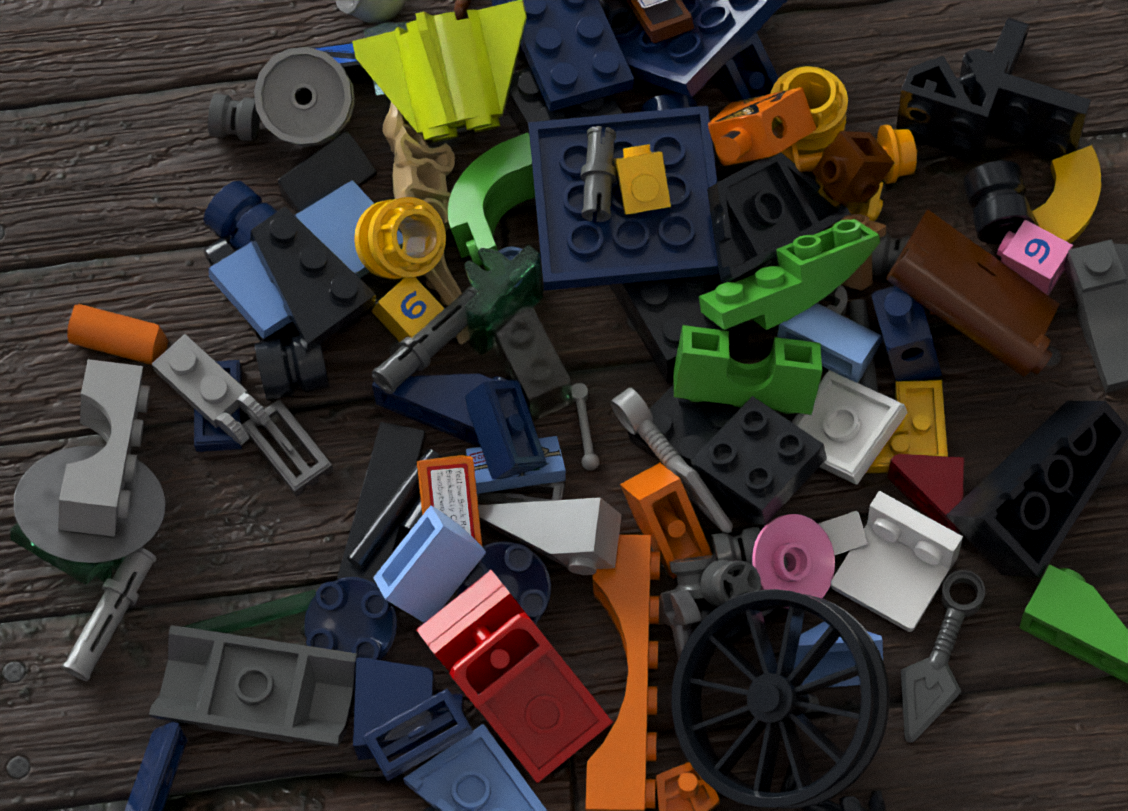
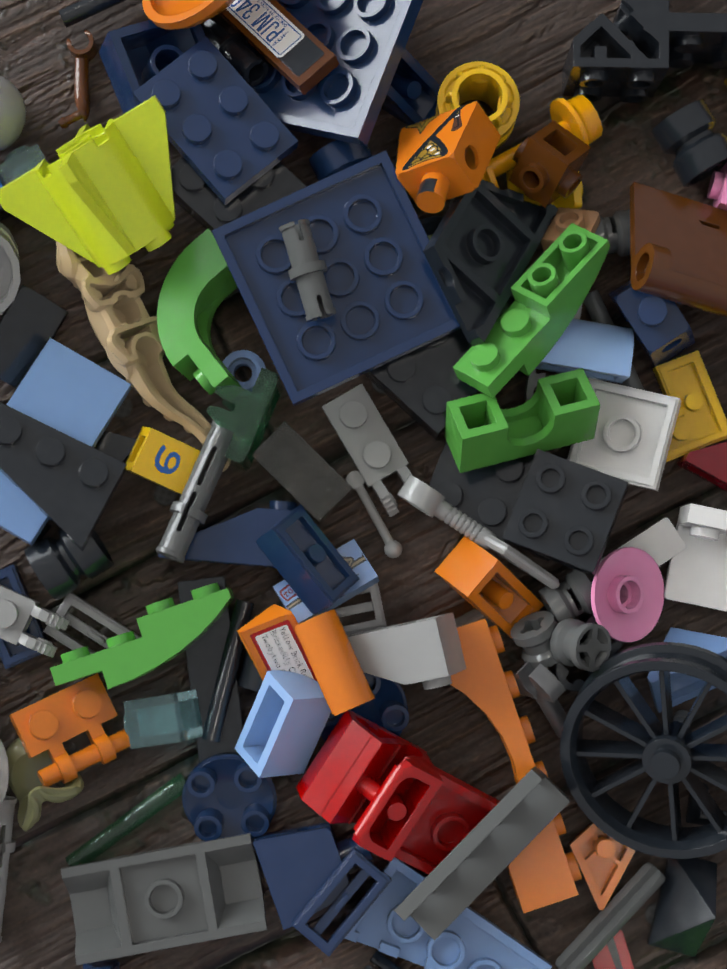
camera: 25 degrees left, 20 degrees up
(180, 539) = (28, 787): none -> olive piece
(230, 500) = (64, 716): none -> orange plate
(318, 528) = (162, 719): none -> clear light blue brick
(350, 456) = (164, 632): none -> bright green slope
(422, 238) = (129, 399): yellow piece -> none
(494, 514) = (334, 662): none -> orange brick
(566, 731) = (484, 853): none -> dark grey fence
(602, 360) = (368, 442): none -> light grey hinge
(642, 180) = (353, 261): yellow bracket -> none

